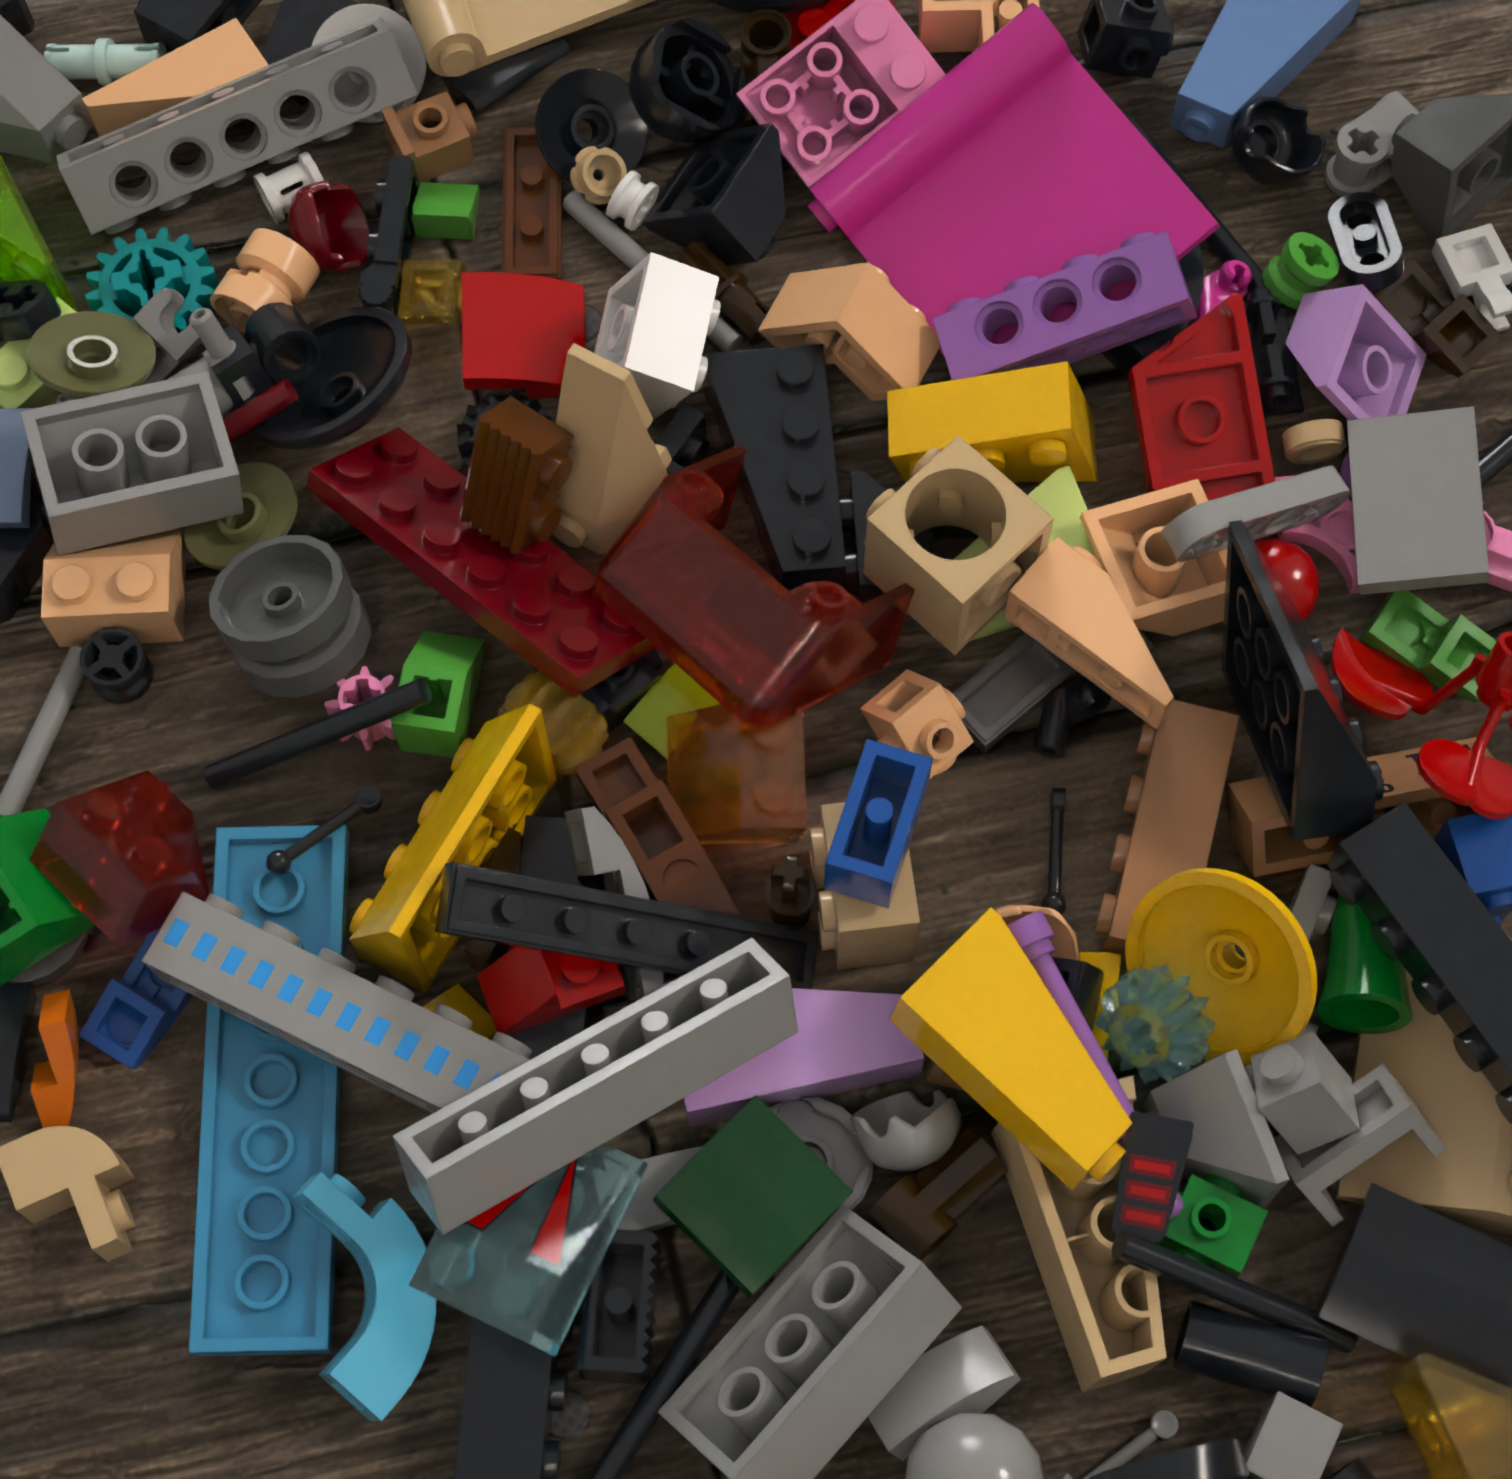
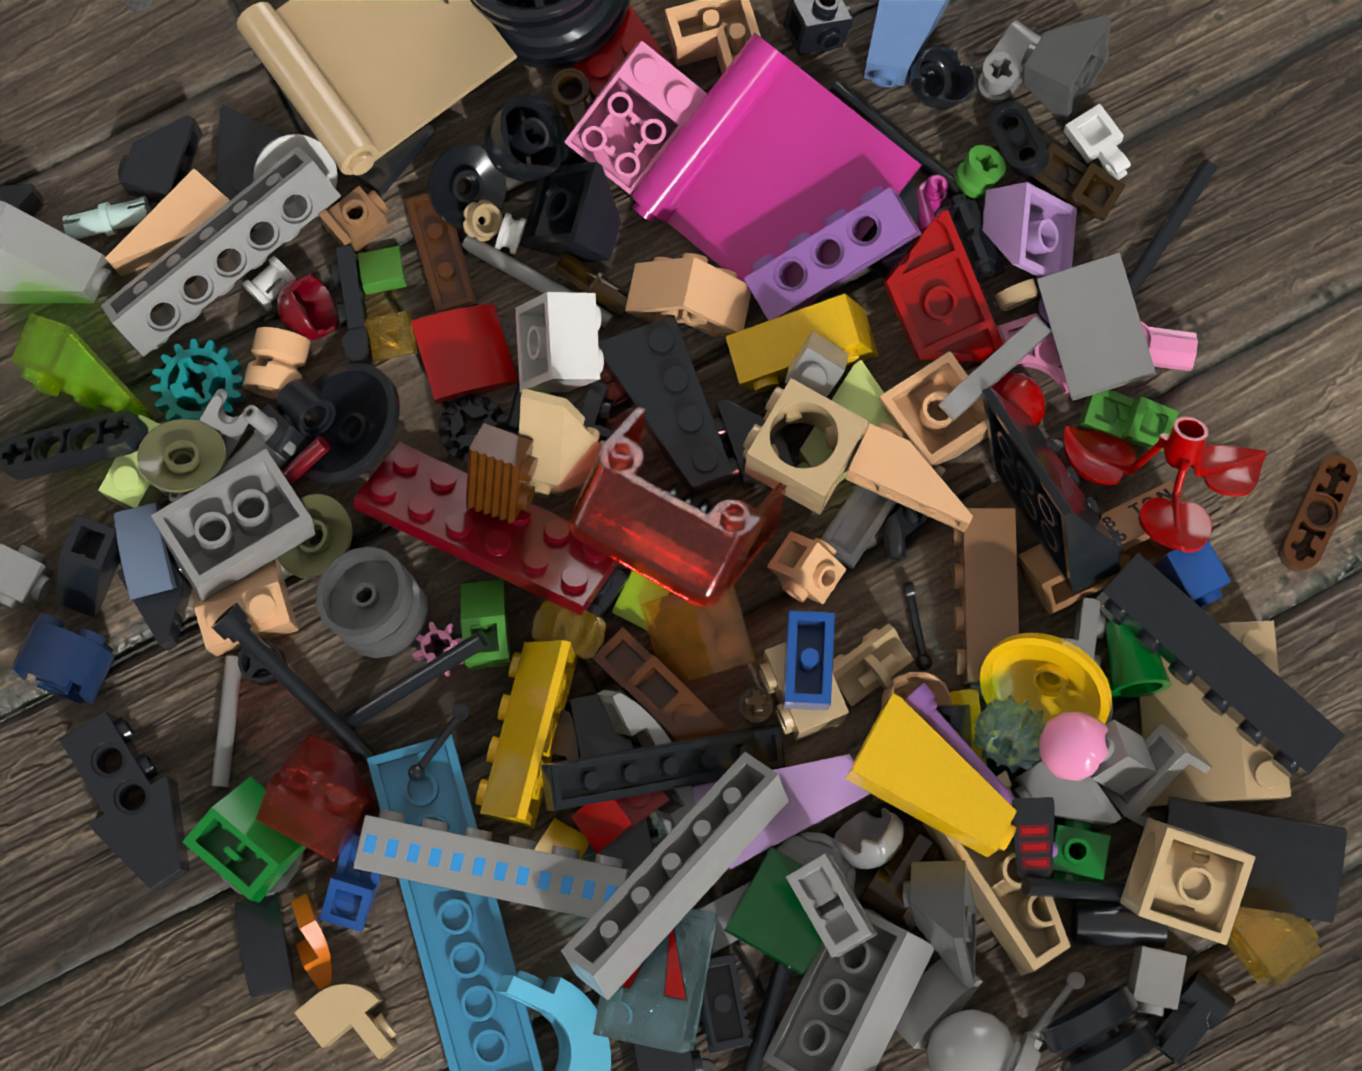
camera: 15 degrees left, 10 degrees up
(89, 593) = (236, 627): none -> black piece
(818, 1194) = (831, 905): none -> light grey brick
(972, 881) = (870, 664): none -> tan hips
(990, 1258) = (945, 912): none -> dark grey slope
(1007, 438) = (818, 364): none -> light grey brick
(1241, 1049) = (1073, 745): none -> bright pink hair
(1371, 1296) = (1187, 881): none -> tan brick

